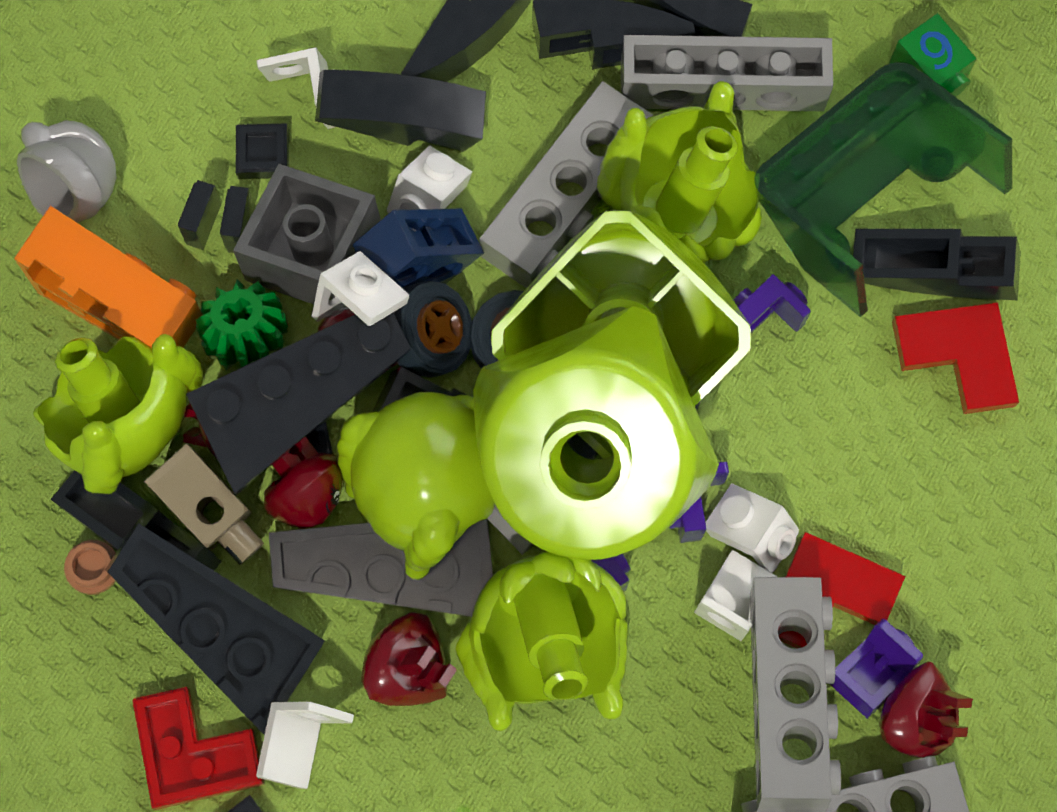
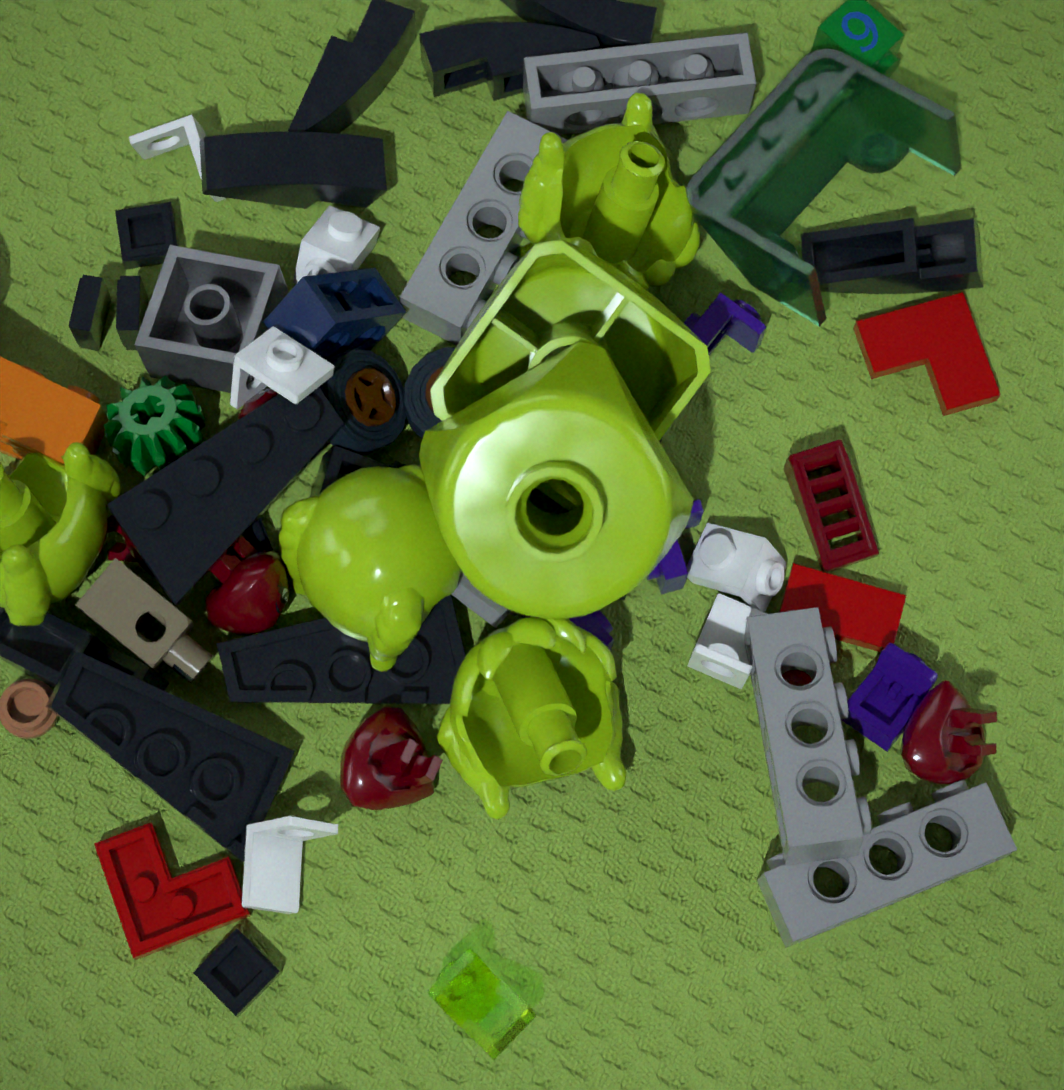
camera: 10 degrees left, 0 degrees up
(824, 467) = (843, 478): none -> dark red slope

